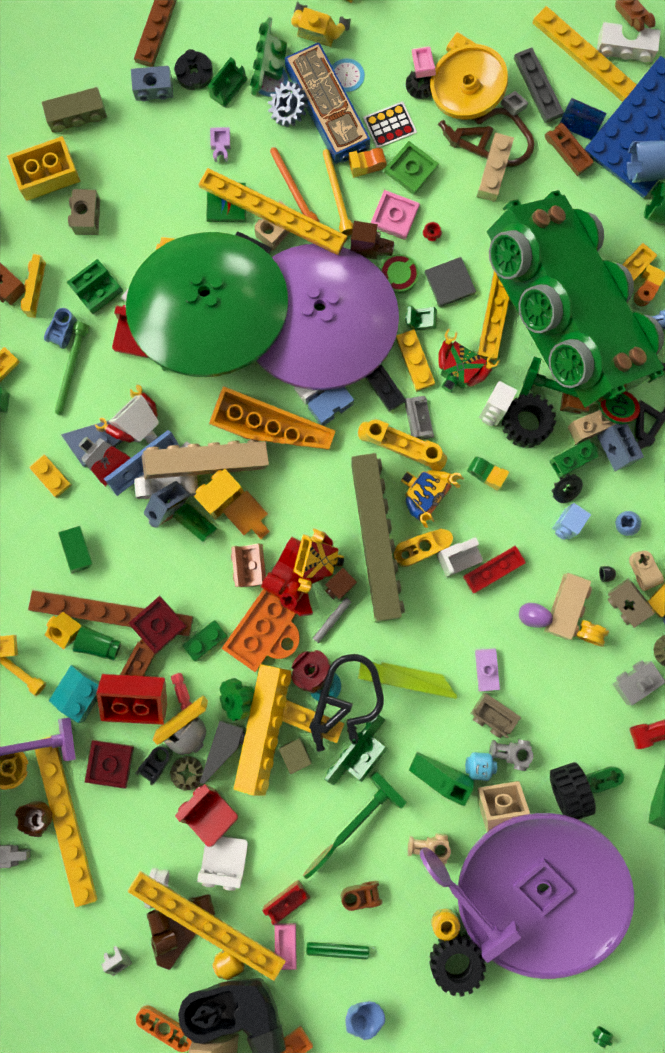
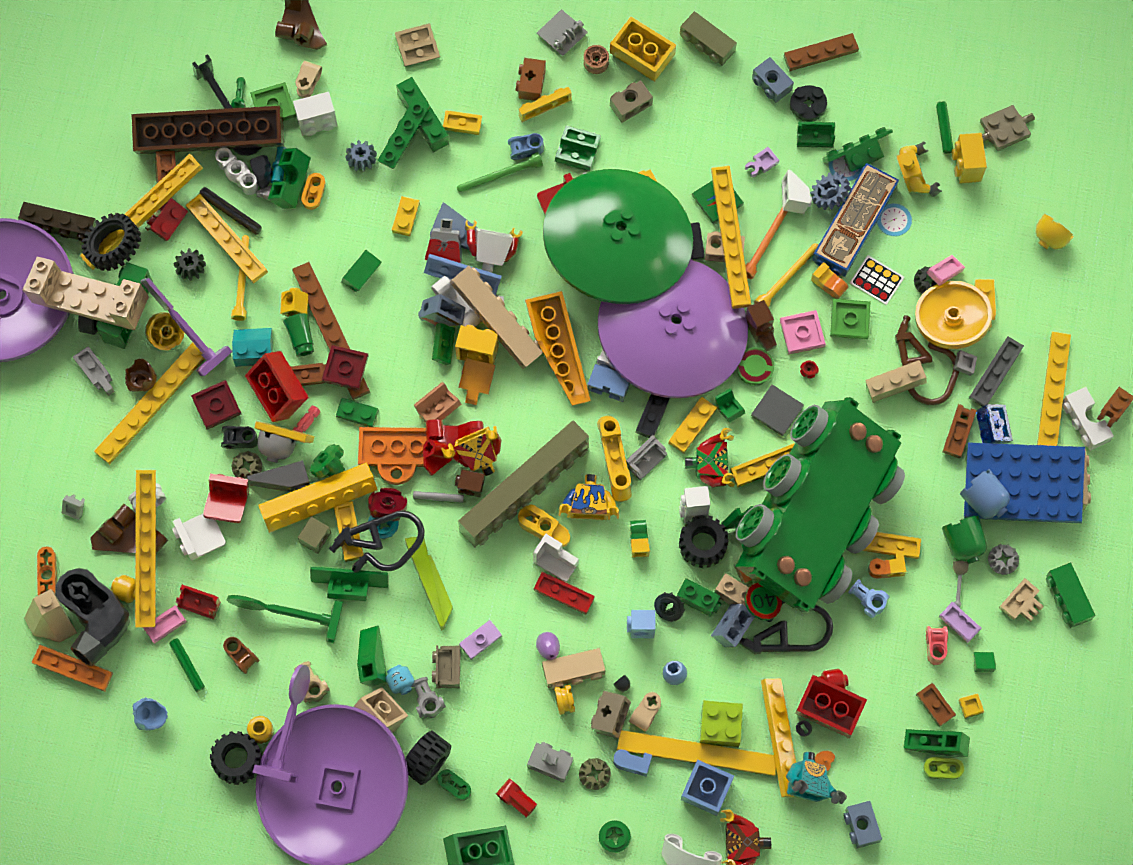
camera: 55 degrees right, 10 degrees down
(24, 207) = (591, 54): none -> nougat wheel
(268, 135) = (795, 193): none -> white slope

